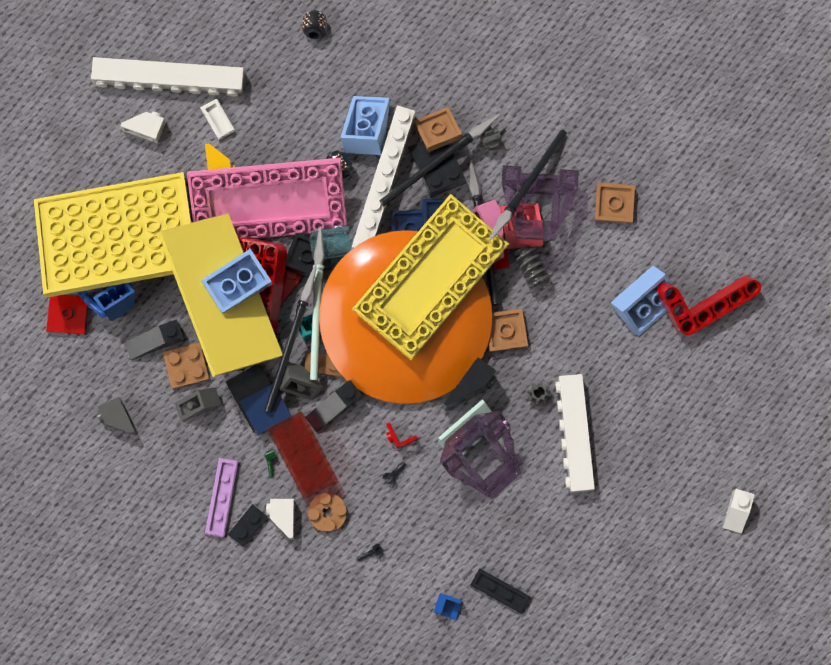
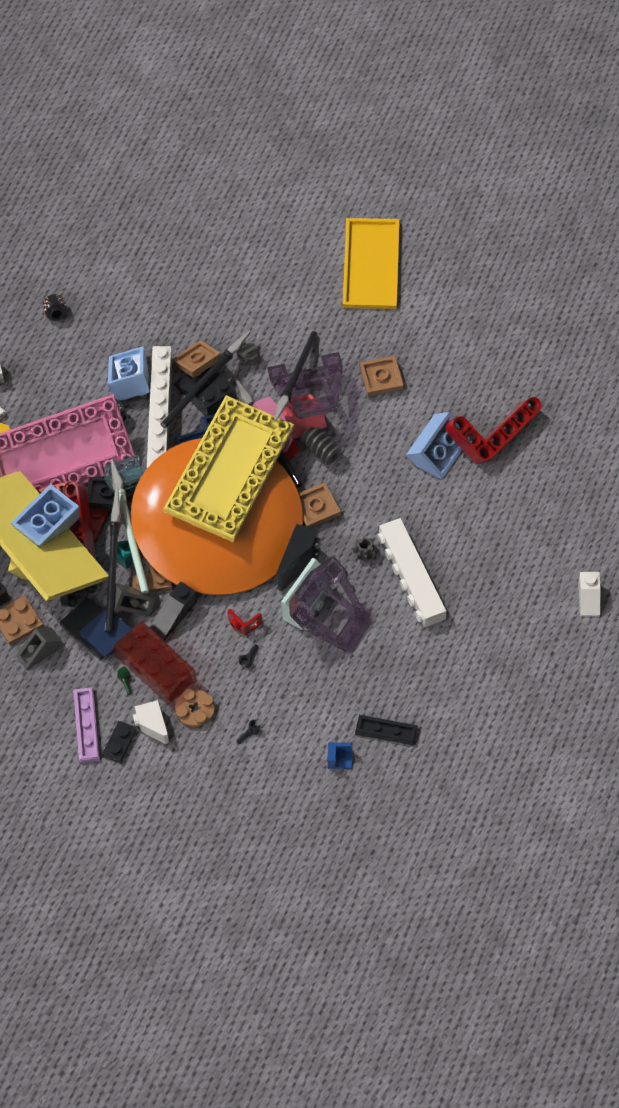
camera: 15 degrees left, 20 degrees down
(645, 66) = (371, 263): none -> yellow tile

